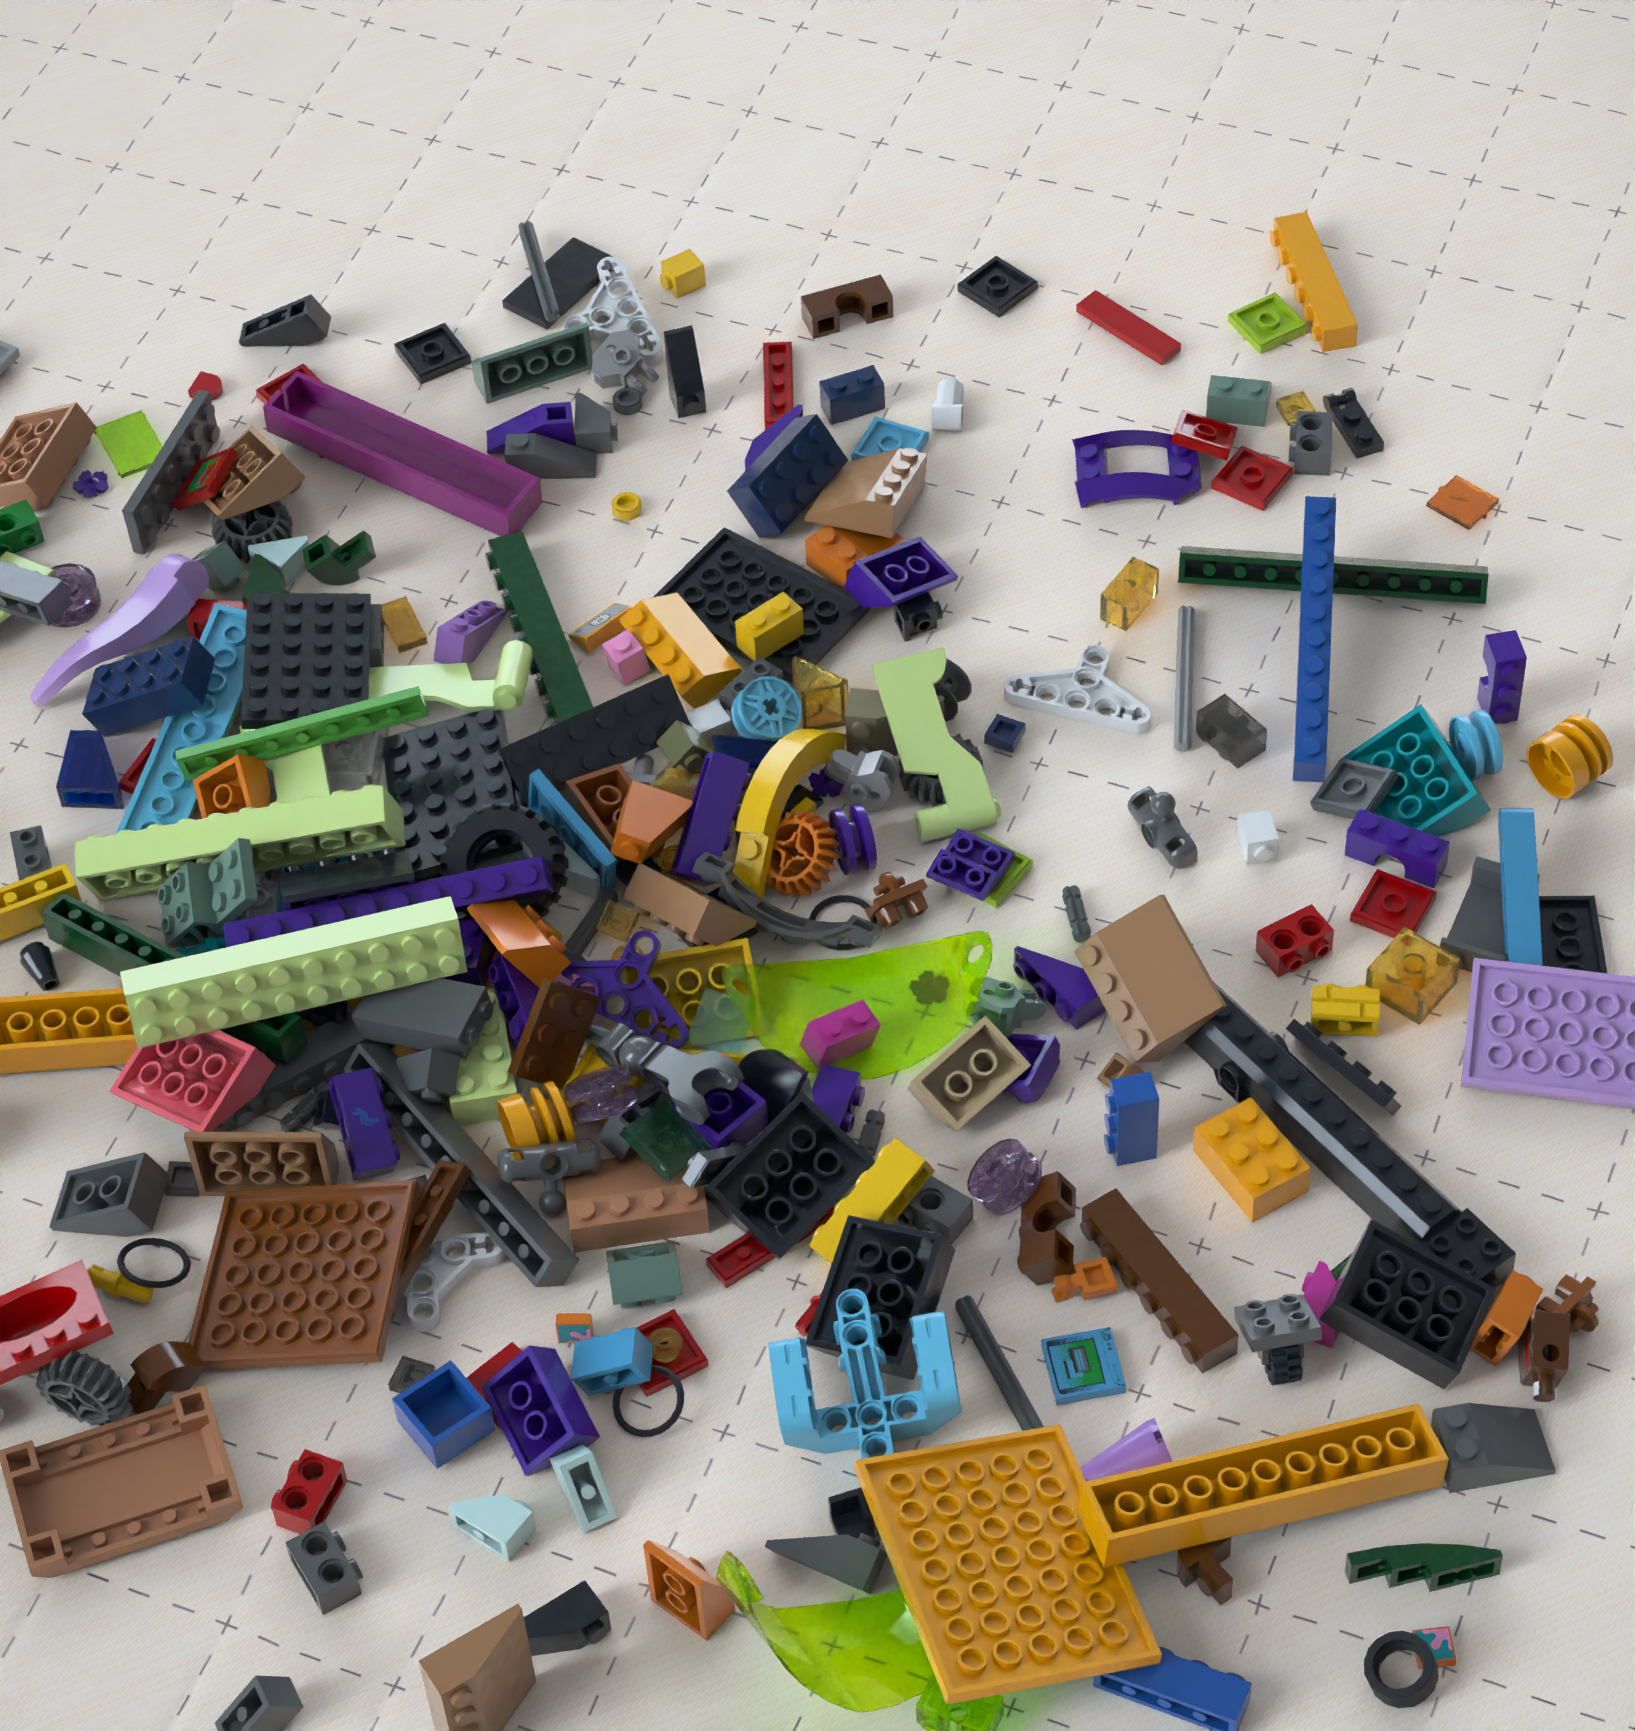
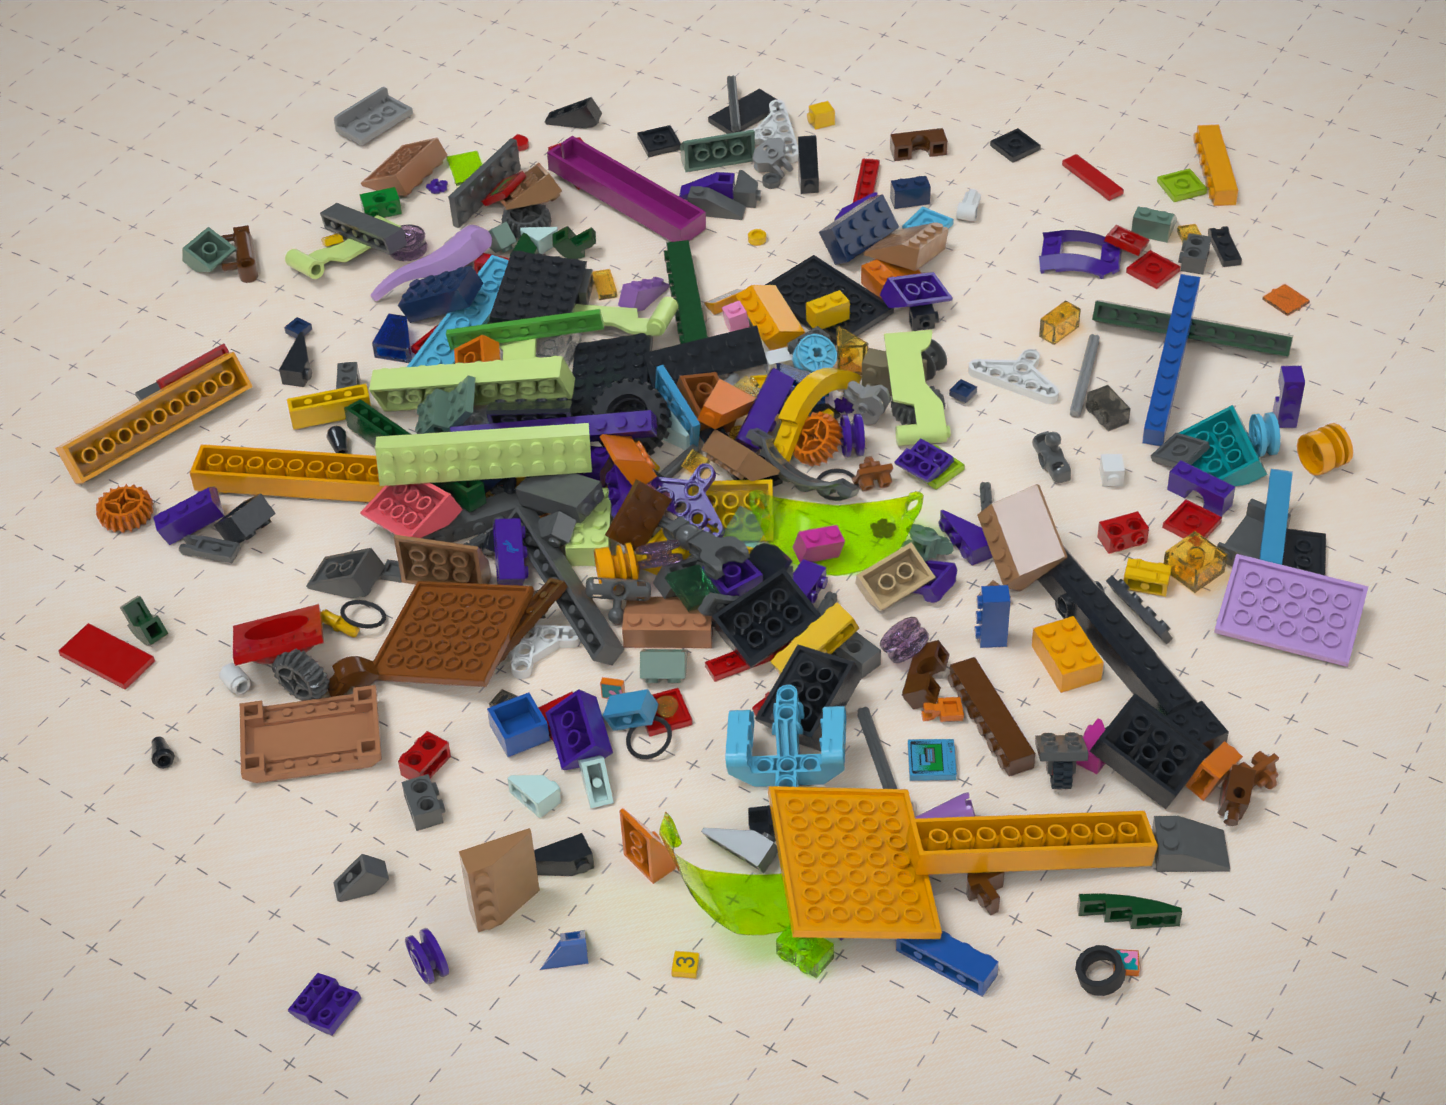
camera: 10 degrees right, 5 degrees down
(683, 746) = (758, 368): olive brick -> none

